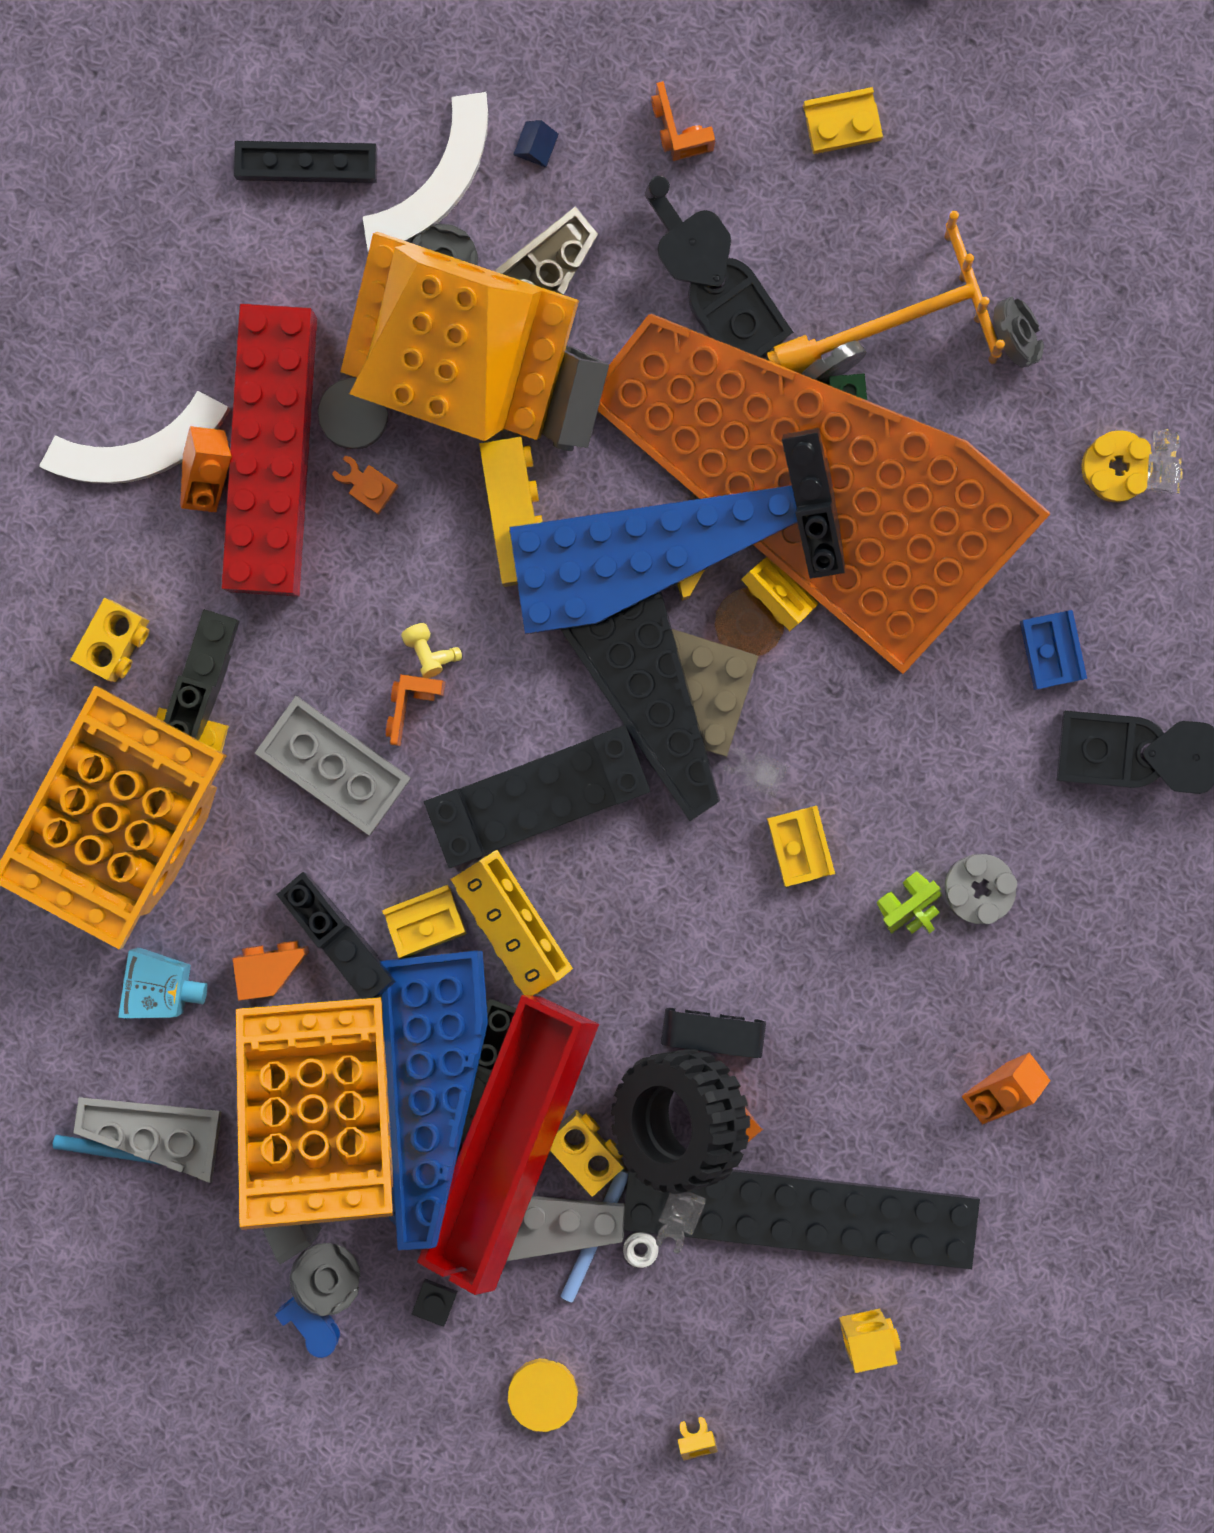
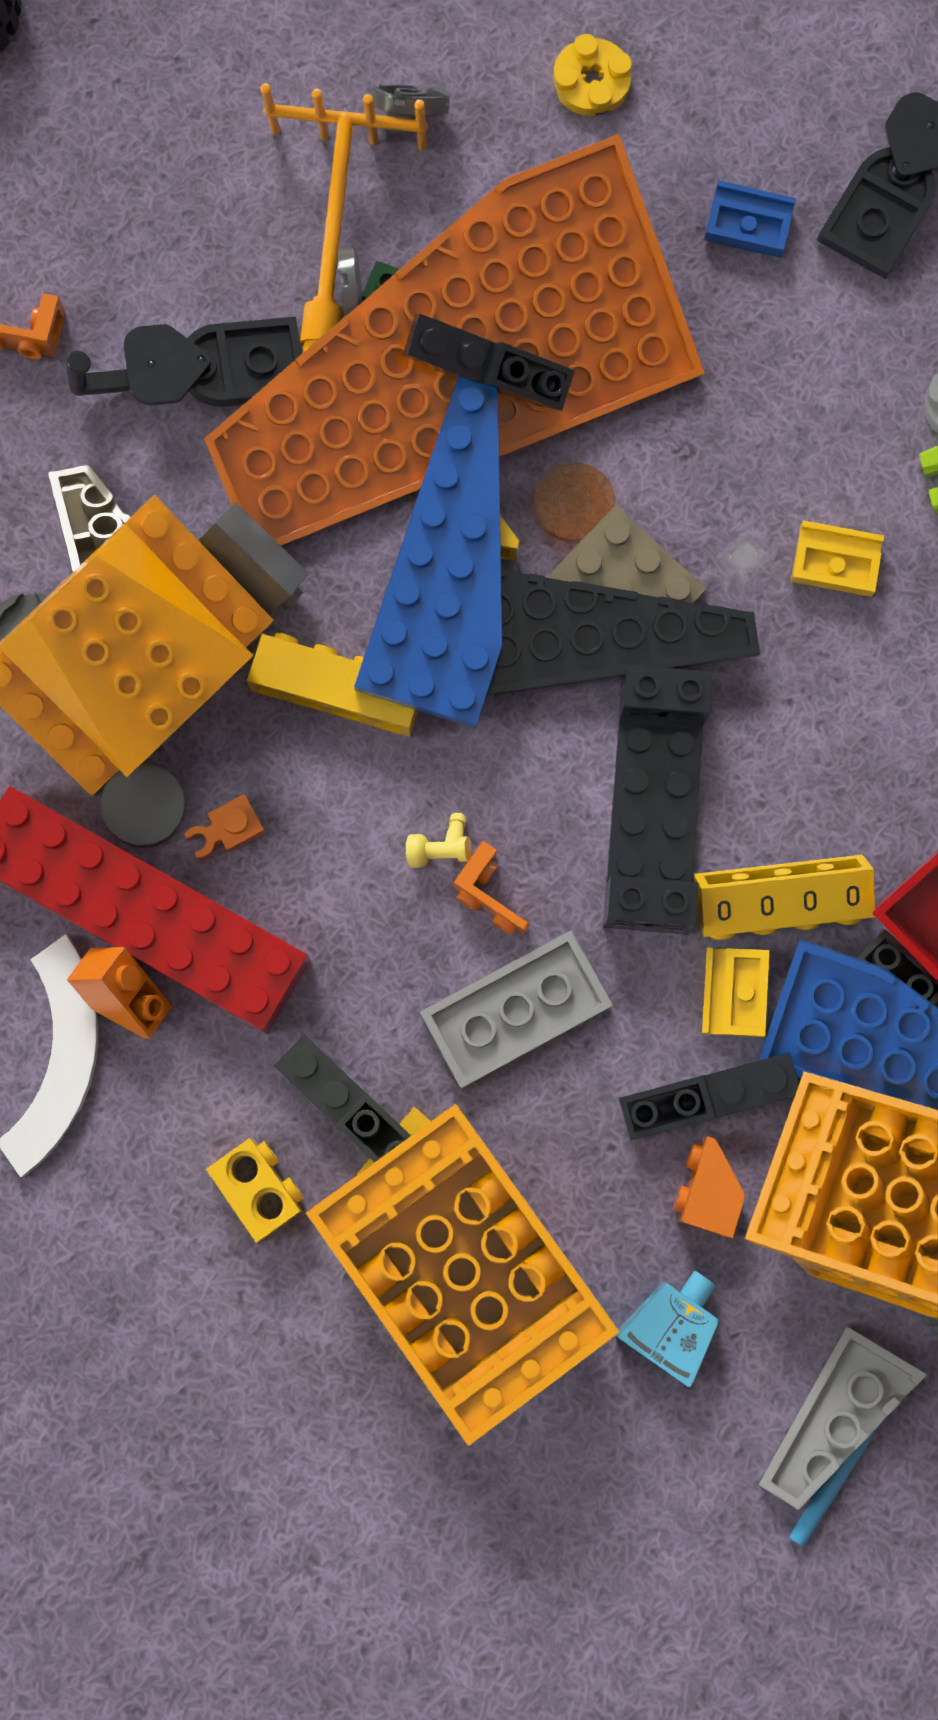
camera: 65 degrees left, 10 degrees down
(779, 593) = (562, 451): yellow plate -> none
(842, 120) = (105, 174): yellow plate -> none
(1164, 467) = (616, 31): clear plate -> none

